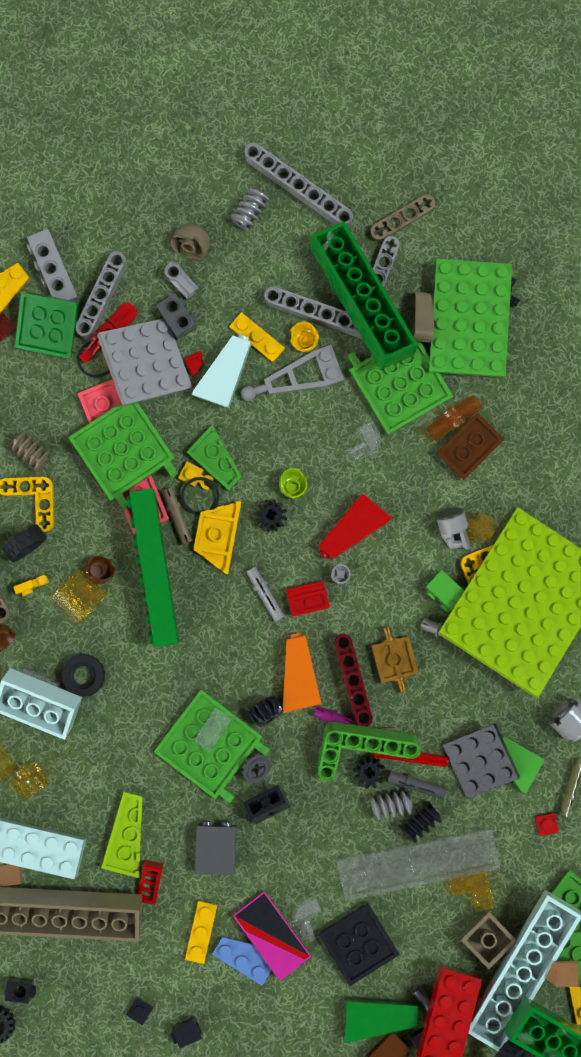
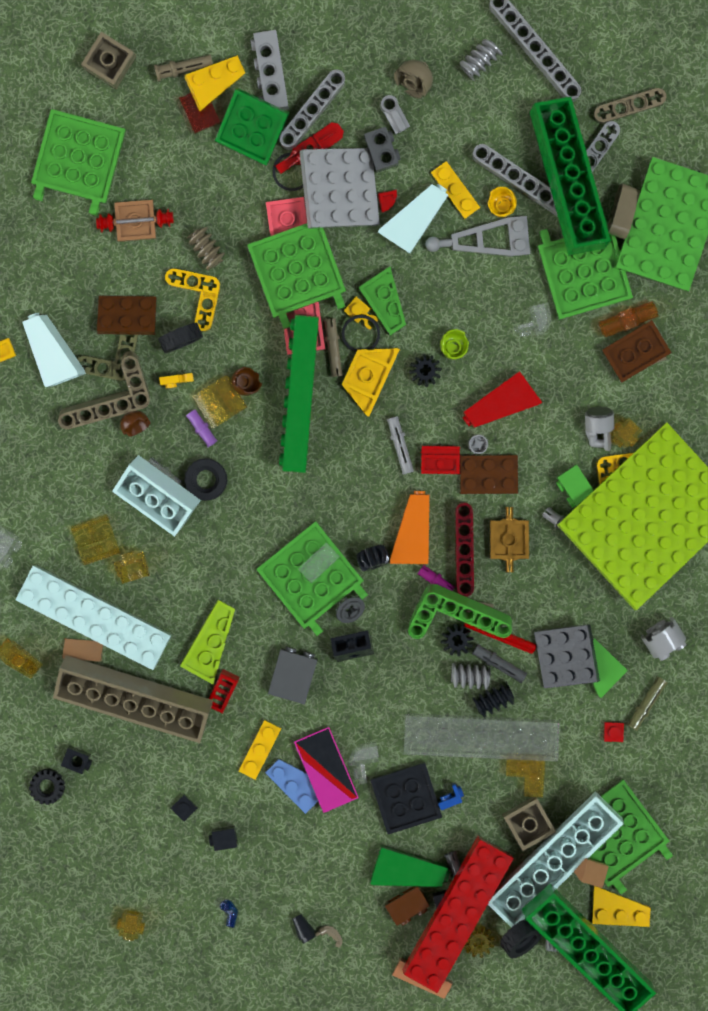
camera: 15 degrees right, 5 degrees up
(67, 626) = (201, 428): none -> medium lavender pin
(358, 601) = (489, 474): none -> reddish brown plate
(401, 935) = (450, 800): none -> blue bracket

